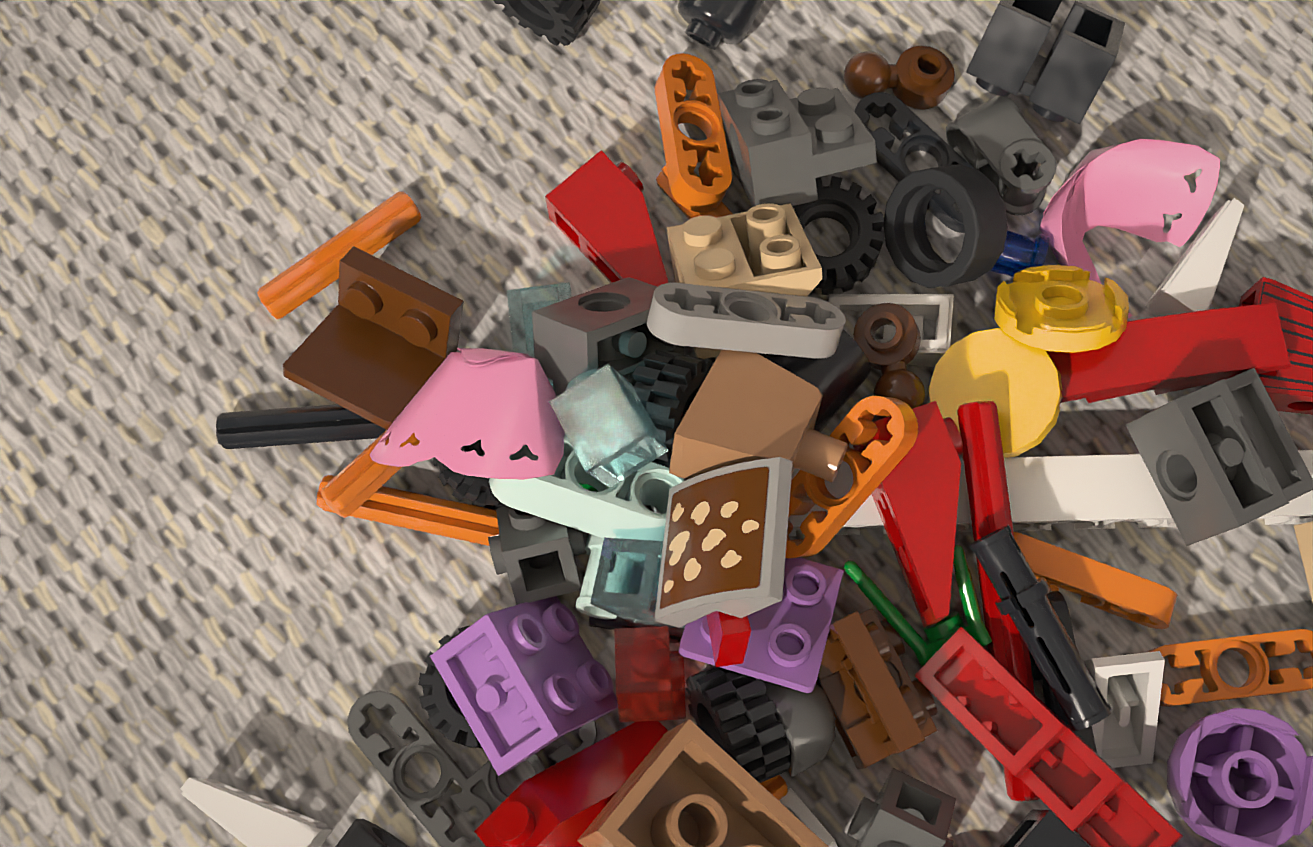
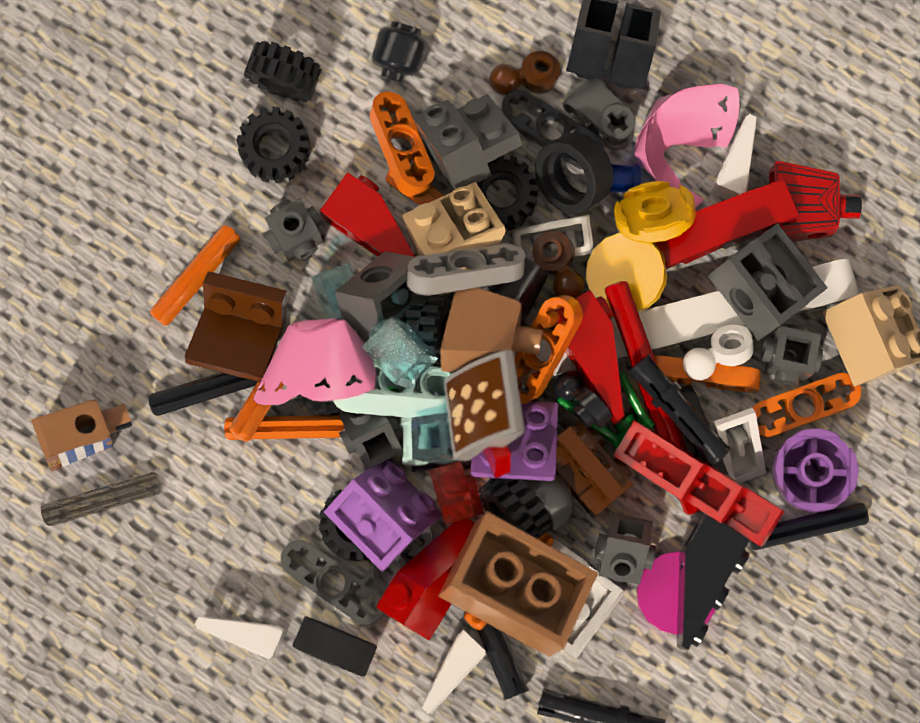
camera: 15 degrees left, 5 degrees up
(64, 442) = (61, 437): none -> medium nougat torso
(103, 554) = (101, 499): none -> clear smoke axle
(498, 63) = (268, 123): none -> black tyre
(500, 218) = (296, 243): none -> dark grey brick
(894, 585) = (588, 406): none -> black plate
(1137, 544) = (730, 347): none -> white plate
(1255, 578) = (801, 344): none -> dark grey brick

